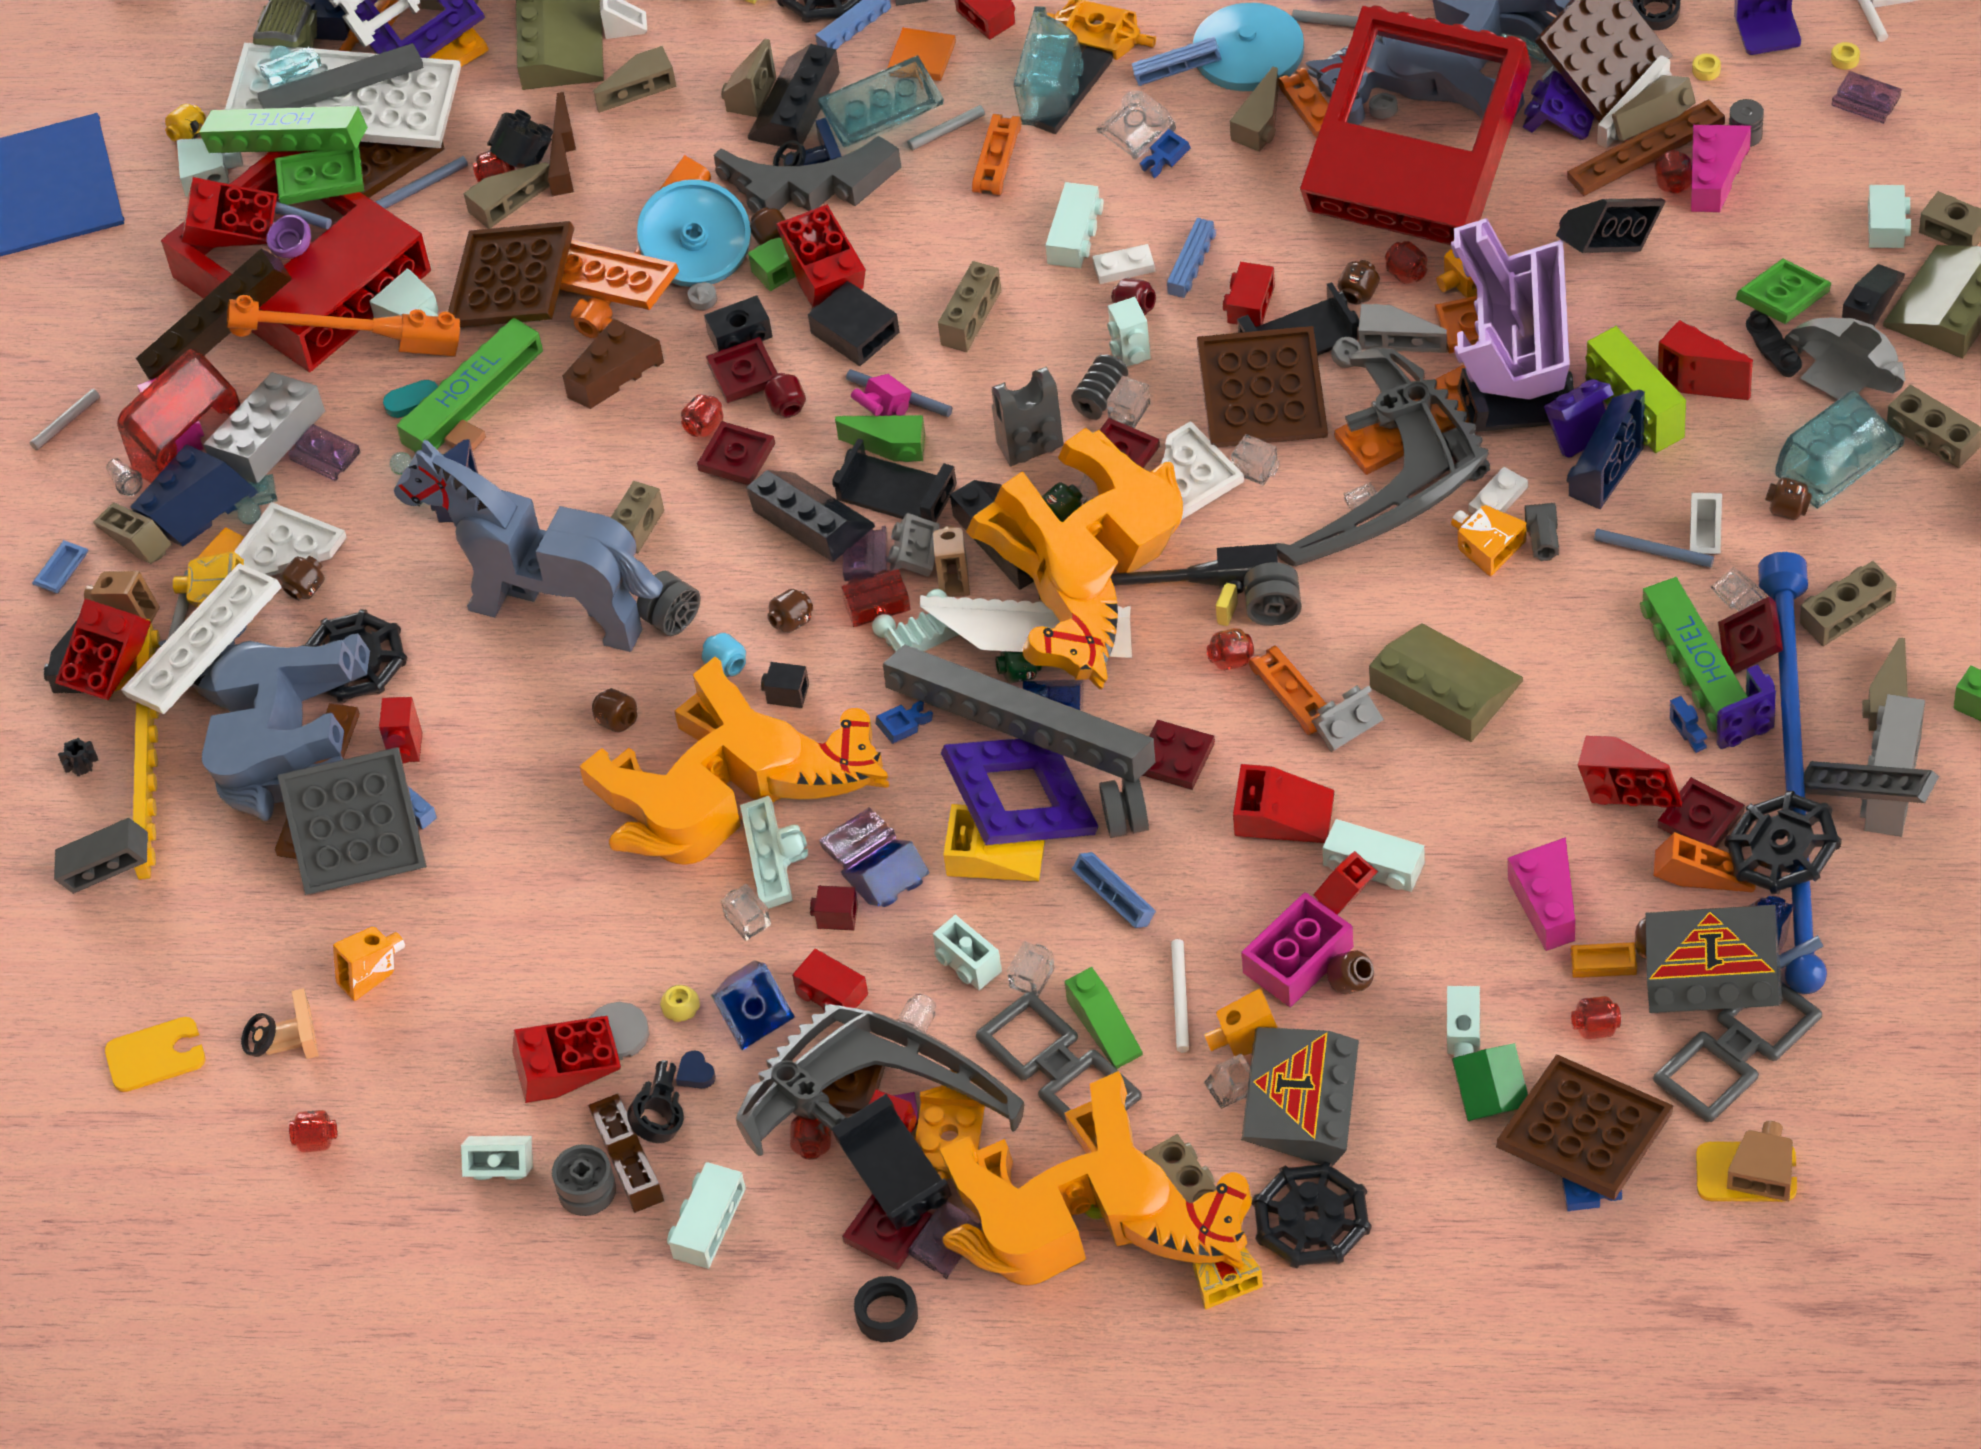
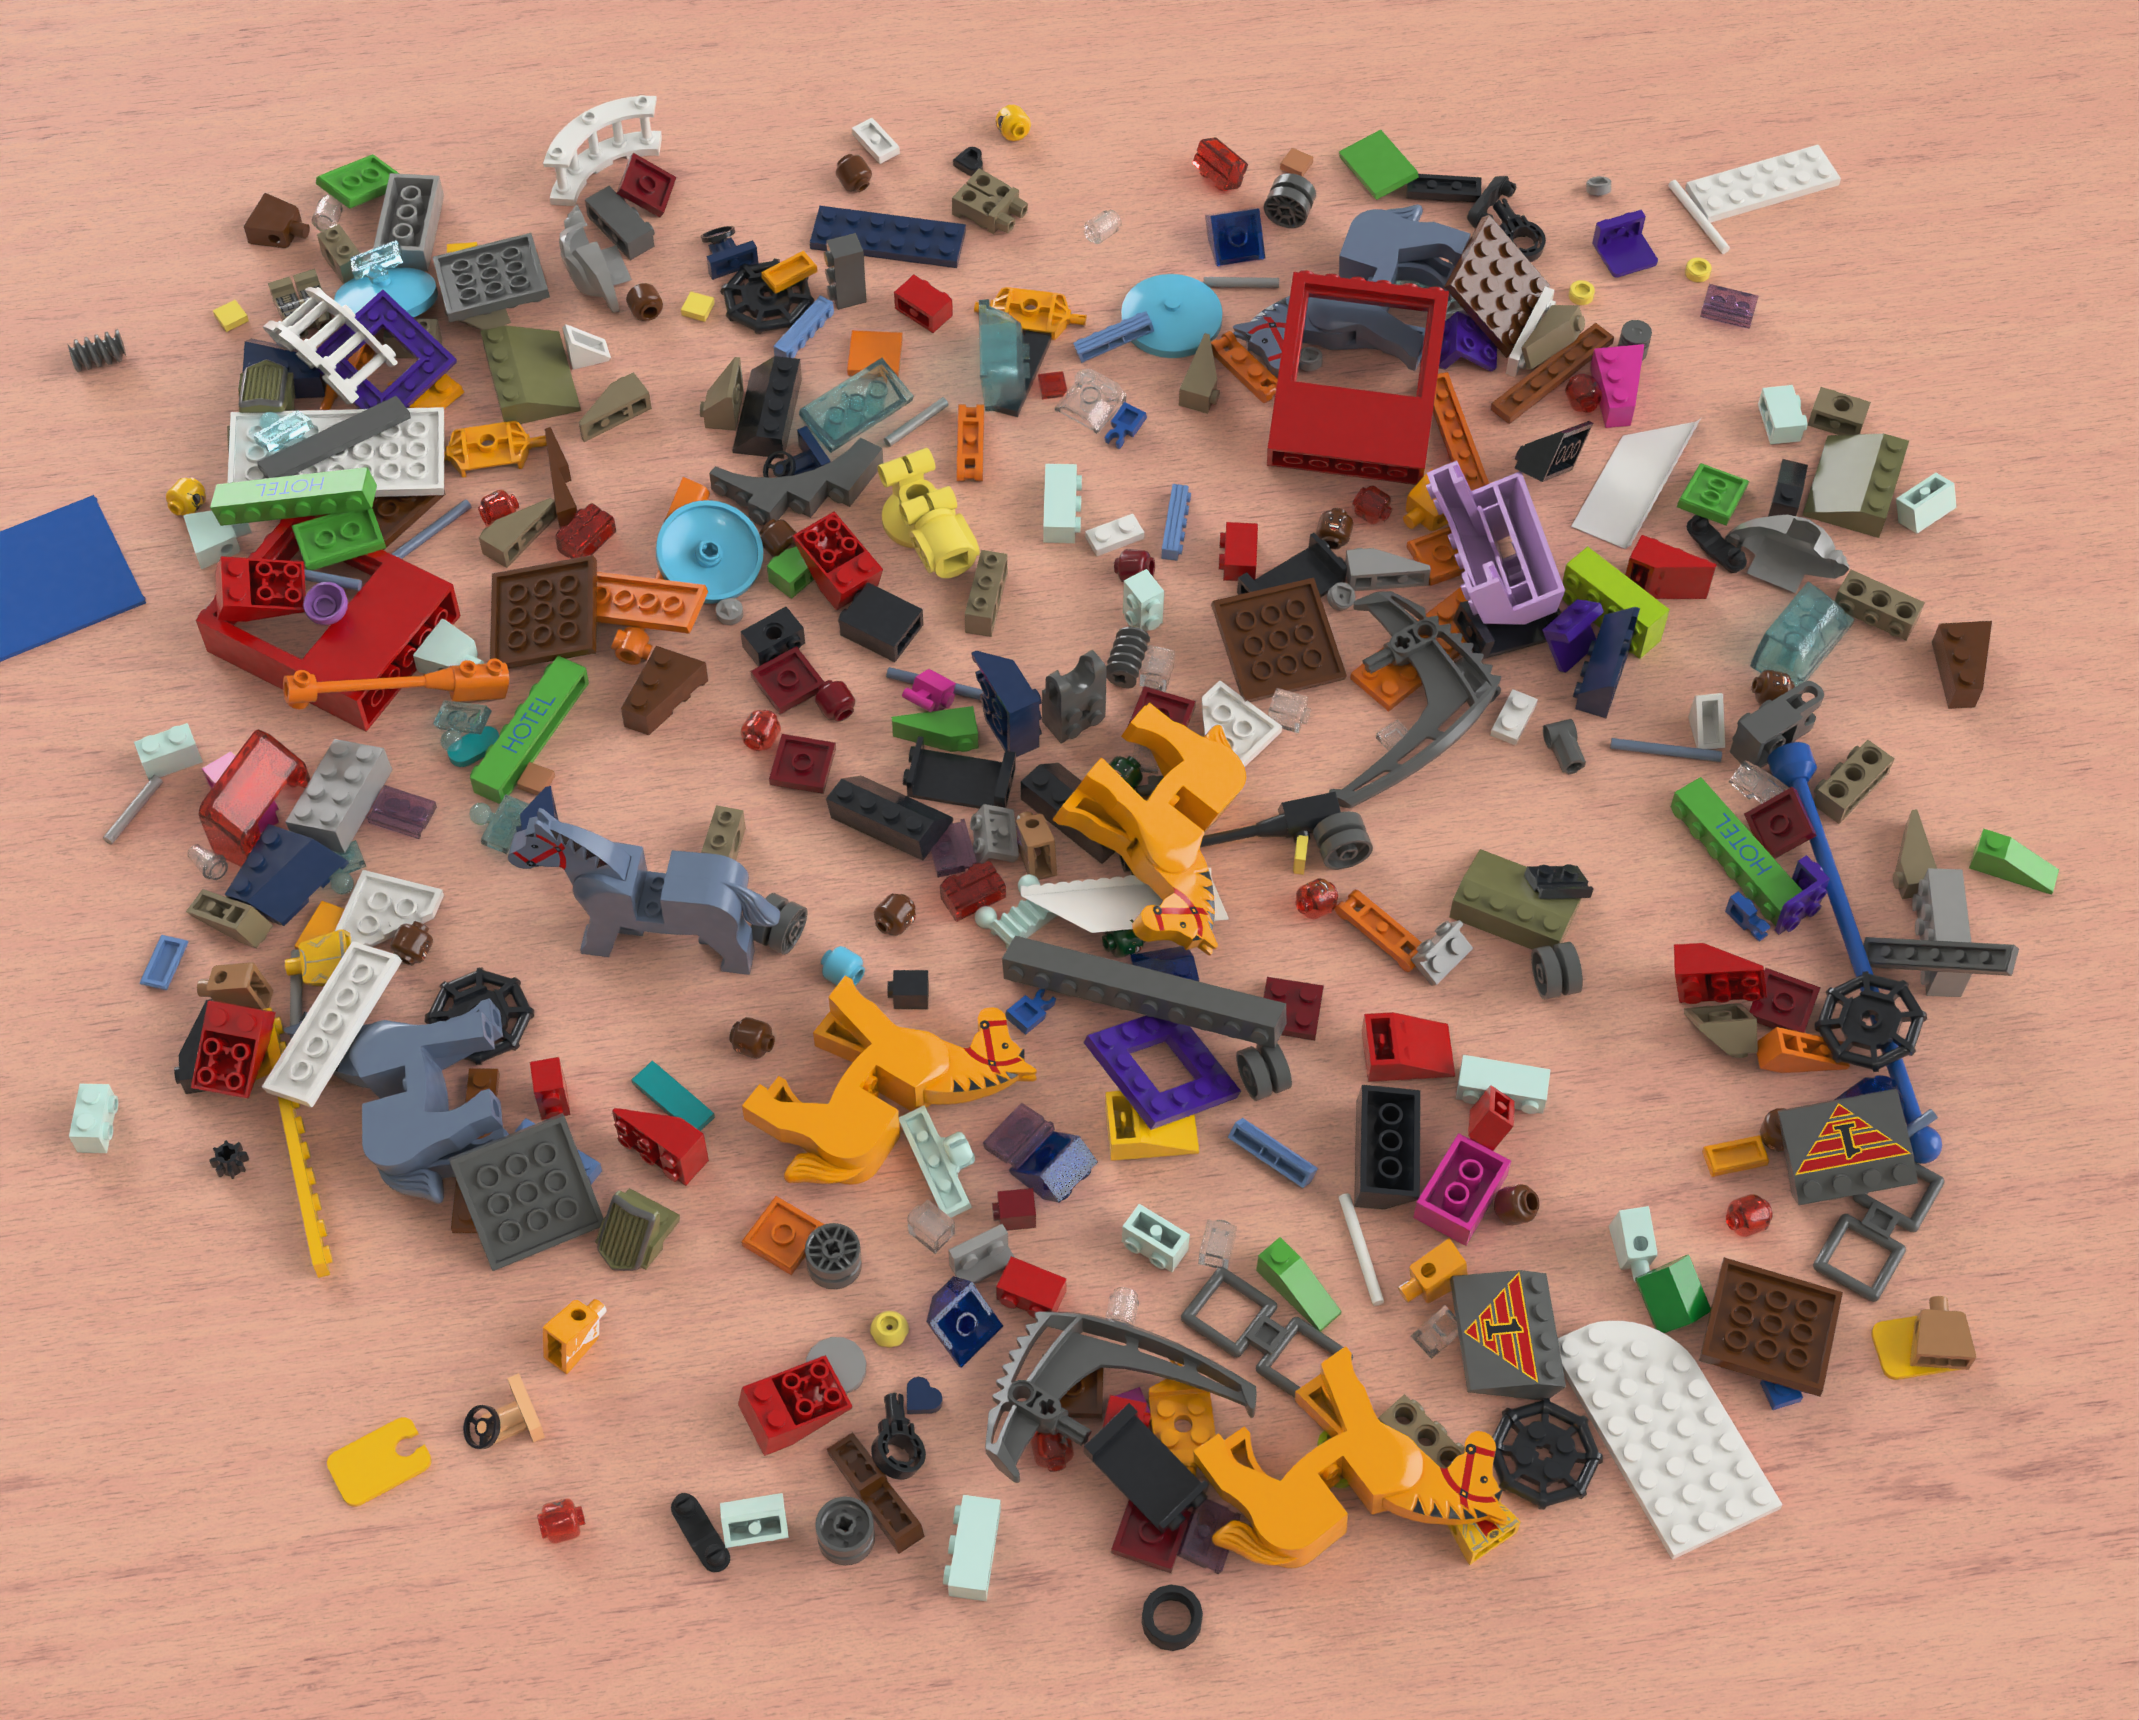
camera: 20 degrees left, 5 degrees up
(100, 855) = (279, 1263): dark grey brick -> none
(110, 367) = (168, 751): none -> light aqua brick
(207, 322) = (265, 693): dark brown brick -> none
(401, 368) = (460, 718): none -> clear light blue plate
(443, 1161) = (700, 1532): none -> black piece
(450, 874) = (634, 1231): none -> olive piece
(478, 109) = (509, 446): none -> light orange plate
(499, 794) = (663, 1141): none -> red slope
(519, 139) = (521, 479): black brick -> none
(523, 758) = (672, 1096): none -> teal tile
(575, 200) = (585, 532): none -> clear red brick
(598, 901) = (781, 1235): none -> orange tile
(640, 925) = (833, 1256): none -> dark grey wheel
(786, 943) = (981, 1255): none -> light grey bracket
(924, 221) = (925, 516): none -> light yellow piece
(957, 415) = (1008, 703): none -> dark blue wedge
(1100, 104) = (1052, 385): none -> clear red tile
(1229, 897) = (1387, 1147): none -> black slope
(1445, 1214) = (1666, 1433): none -> white plate
(1461, 749) = (1557, 970): none -> dark grey wheel
(1489, 537) = (1518, 758): light orange torso -> none
(1491, 663) = (1558, 881): none -> black plate
(1520, 194) = (1457, 433): none -> orange plate
(1545, 891) = (1670, 1099): dark pink wedge -> none
(1628, 832) = (1727, 1026): none -> dark tan slope
(1701, 270) = (1632, 483): none -> white sticker
(1777, 529) = (1776, 724): none -> dark grey brick

